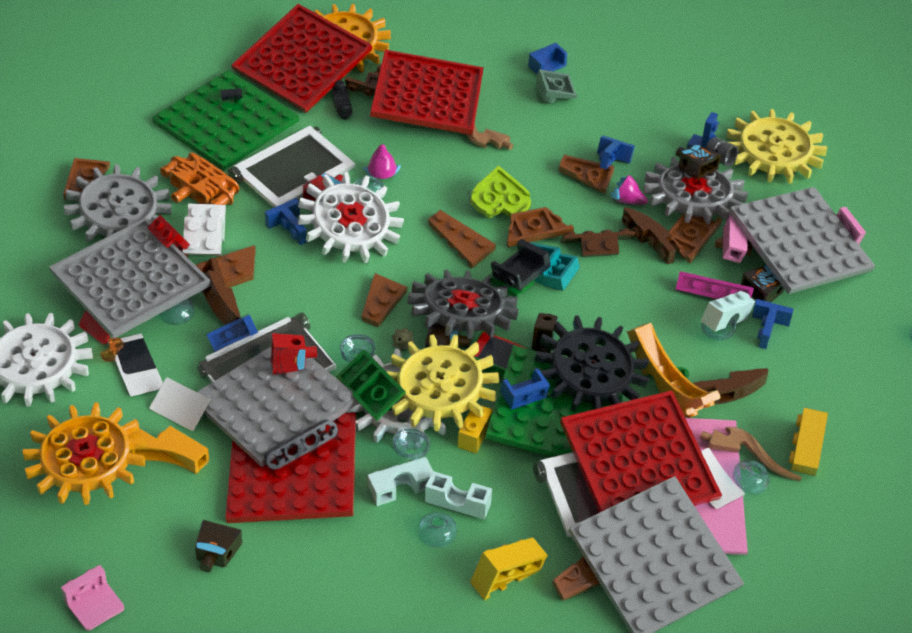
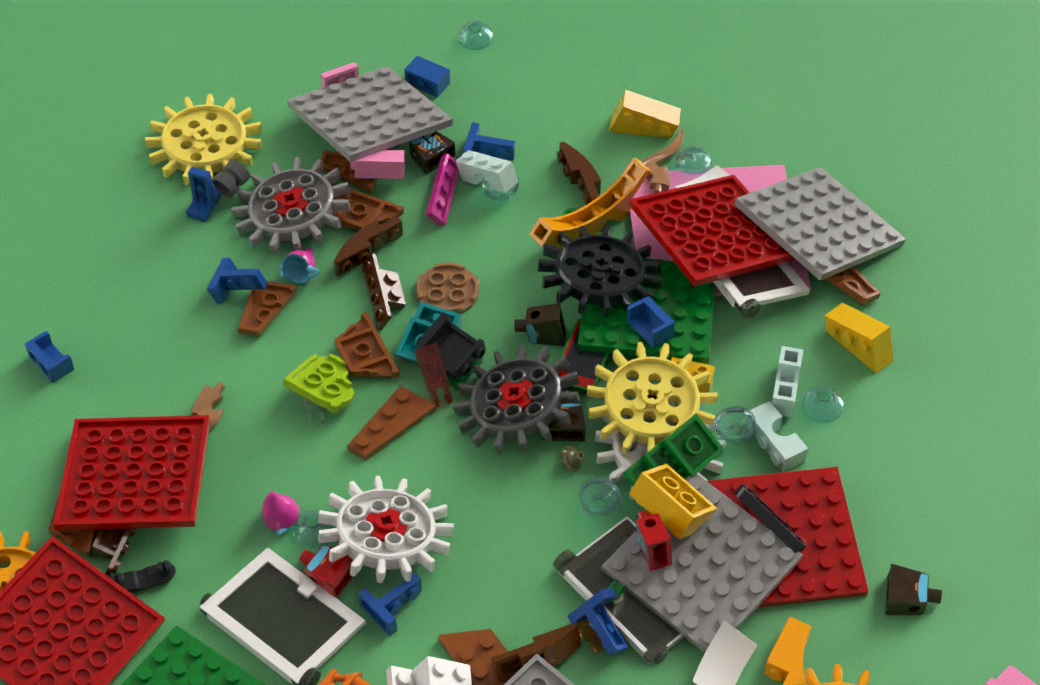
camera: 95 degrees left, 5 degrees up
(260, 341) = (619, 590): none -> green bush
(325, 371) = (673, 498): none -> yellow slope
(382, 299) = (501, 487): dark orange wing -> none
(497, 253) = (433, 372): none -> clear red hinge
(554, 85) = (107, 345): sand green slope -> none
(600, 285) = (448, 287): none -> medium nougat tile
(698, 160) = (256, 195): dark brown torso -> none
(860, 289) = (427, 76): none -> blue panel

